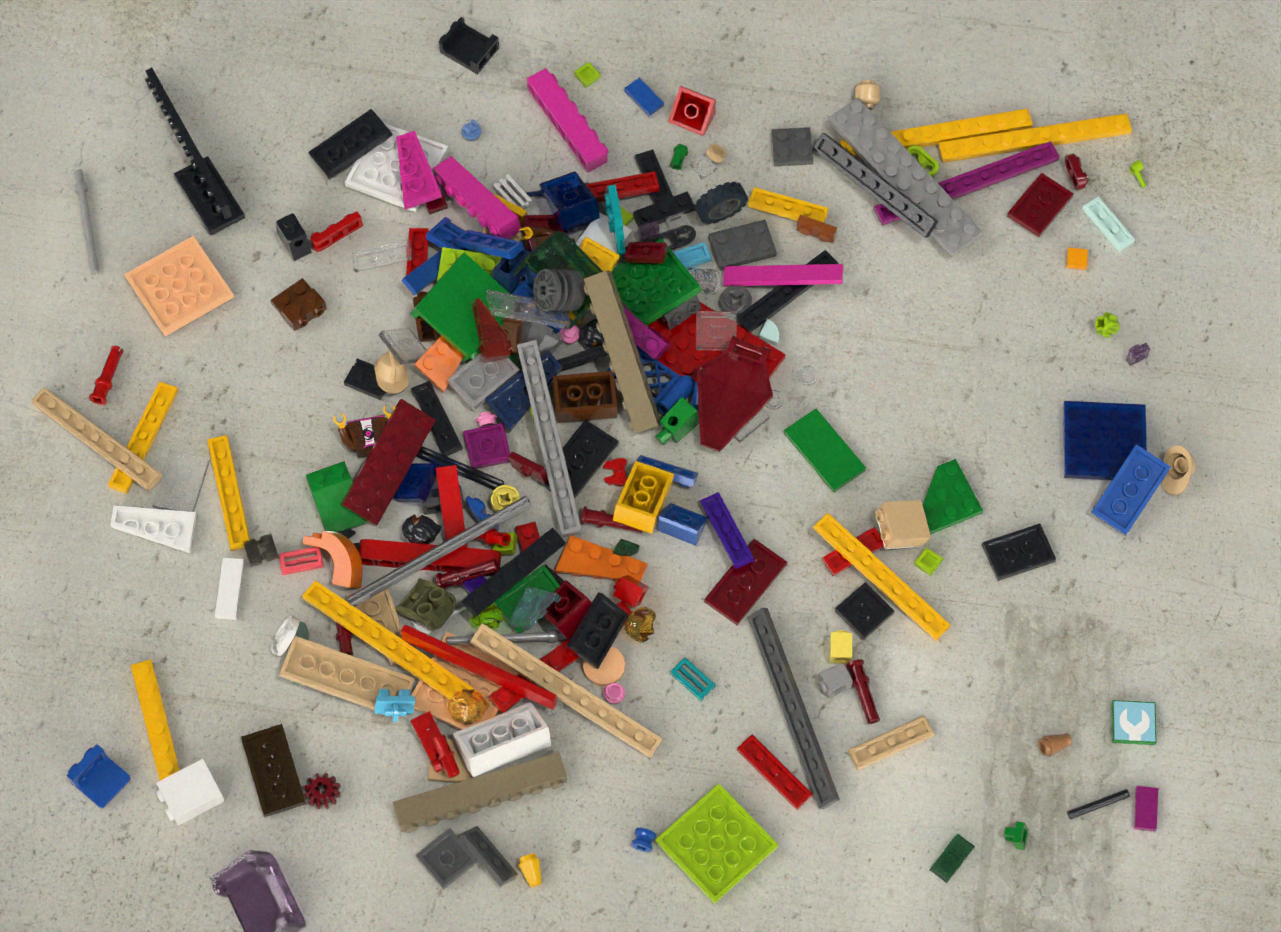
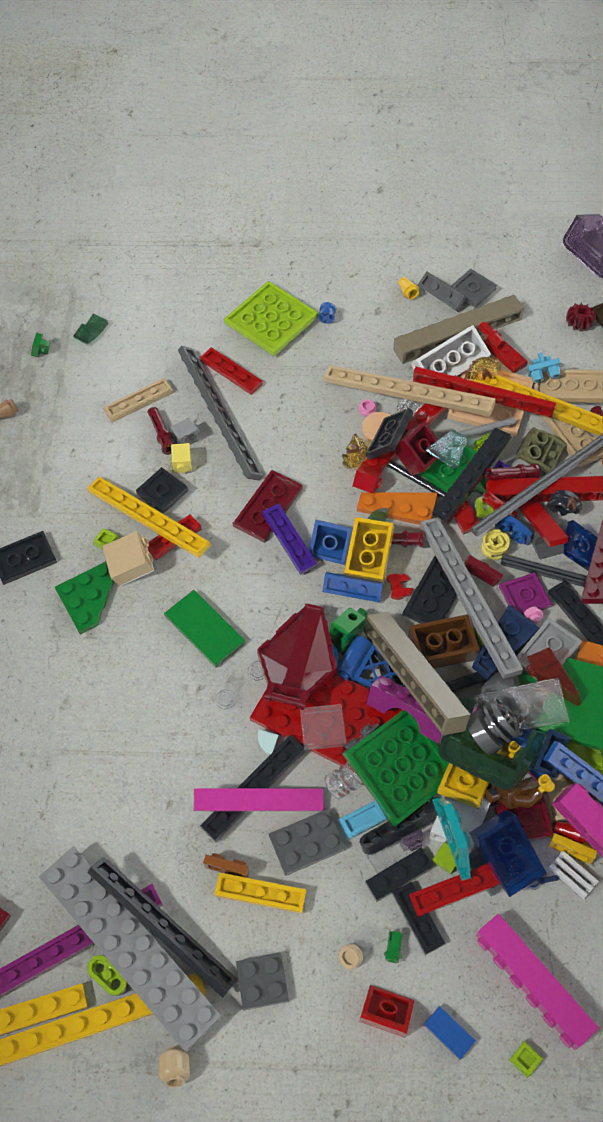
camera: 175 degrees right, 5 degrees down
(646, 252) = (409, 797): dark red plate -> none
(705, 691) = (302, 429): teal tile -> none
(721, 202) = (335, 872): black wheel -> none
(735, 292) = (306, 763): flat silver gear -> none

